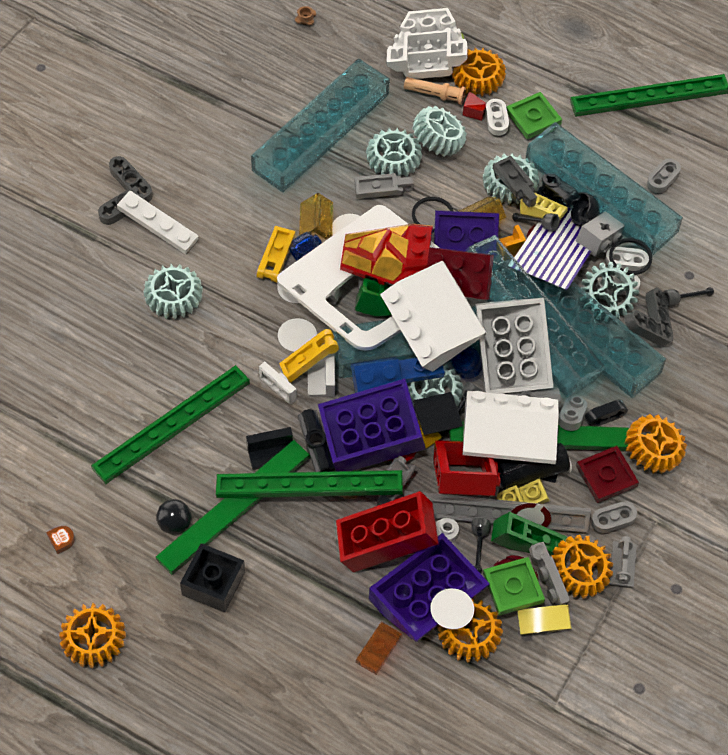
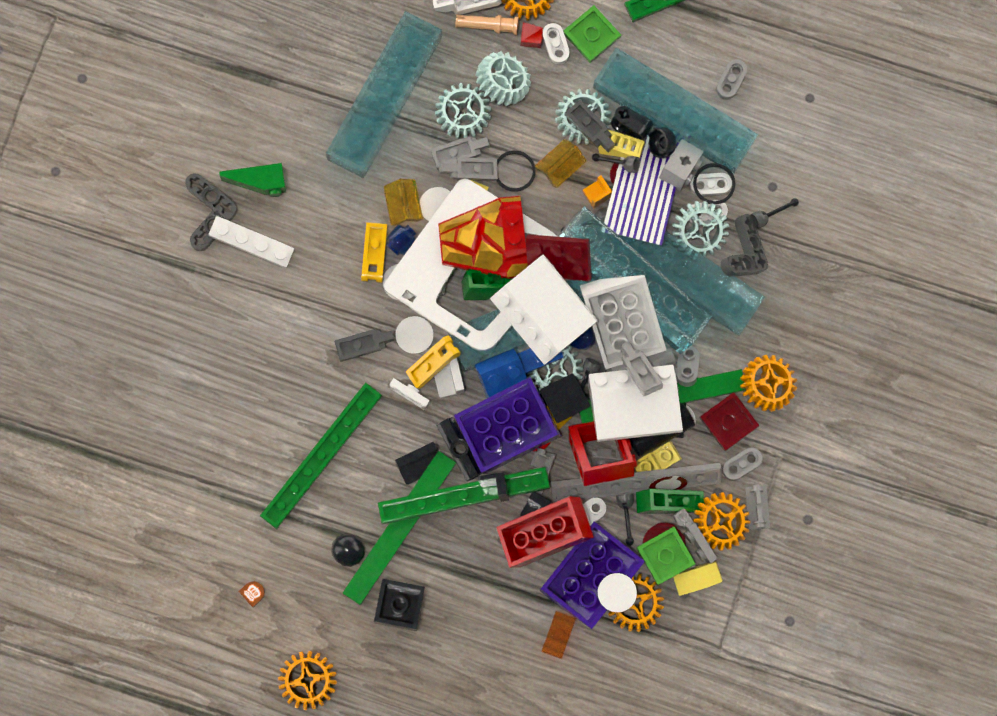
camera: 15 degrees left, 20 degrees up
(167, 302) = (294, 312): light aqua gear -> none
(181, 172) = (260, 179): none -> green slope
(243, 330) = (362, 344): none -> dark grey hinge
(343, 465) = (496, 479): none -> black panel
(393, 199) = (471, 168): none -> light grey hinge
(463, 229) = (552, 191): dark purple tile -> none
(522, 391) = (640, 370): none -> light grey hinge
(606, 413) = (718, 359): black beam -> none

